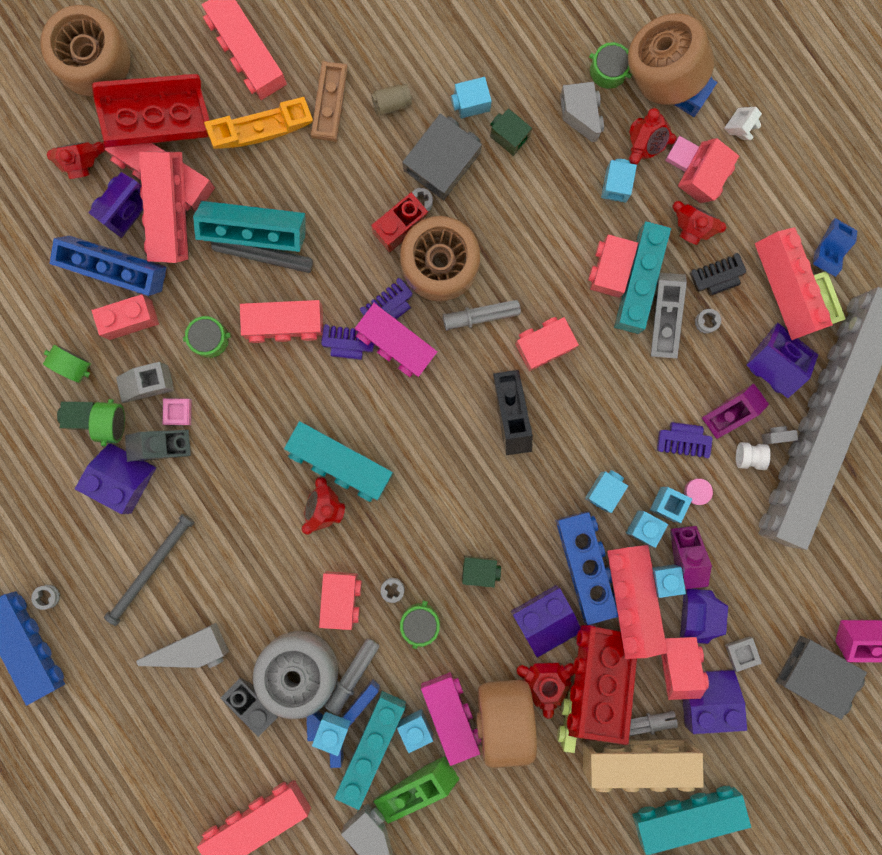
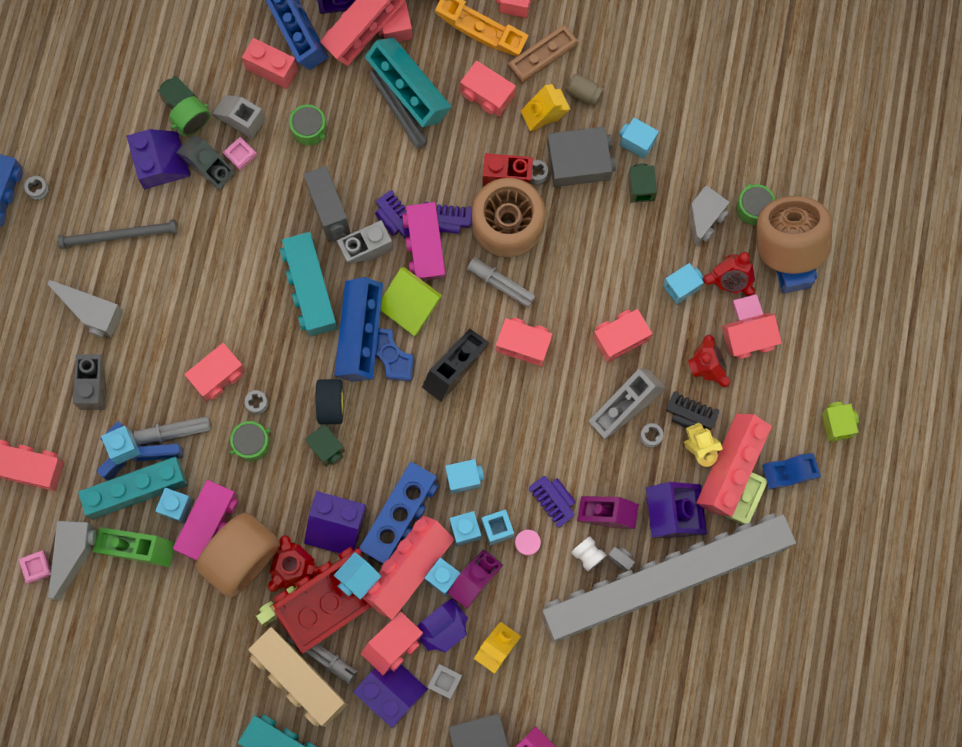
camera: 50 degrees right, 10 degrees down
(66, 363) = (203, 56): bright green piece -> none
(281, 320) = (366, 160): coral brick -> none
(290, 386) = (327, 204): none -> dark grey brick
(300, 653) = (148, 404): light grey wheel -> none
(316, 171) = (487, 89): none -> coral brick
(322, 508) = (266, 303): red rock -> none
(350, 387) = (366, 243): none -> light grey slope
(377, 143) = (545, 108): none -> yellow brick
(414, 459) = (358, 329): none -> blue brick
(430, 398) = (409, 301): none -> lime tile
(450, 536) = (329, 401): none -> black wheel
(466, 454) = (397, 363): none -> blue tile
(612, 650) = (356, 576): none -> medium azure brick
(643, 278) = (624, 364): teal brick -> none
(743, 121) = (809, 326): white tile -> none
(755, 291) = (702, 445): none -> light yellow hips
(758, 591) = (497, 647): none -> yellow brick
(834, 174) = (840, 421): none -> lime brick

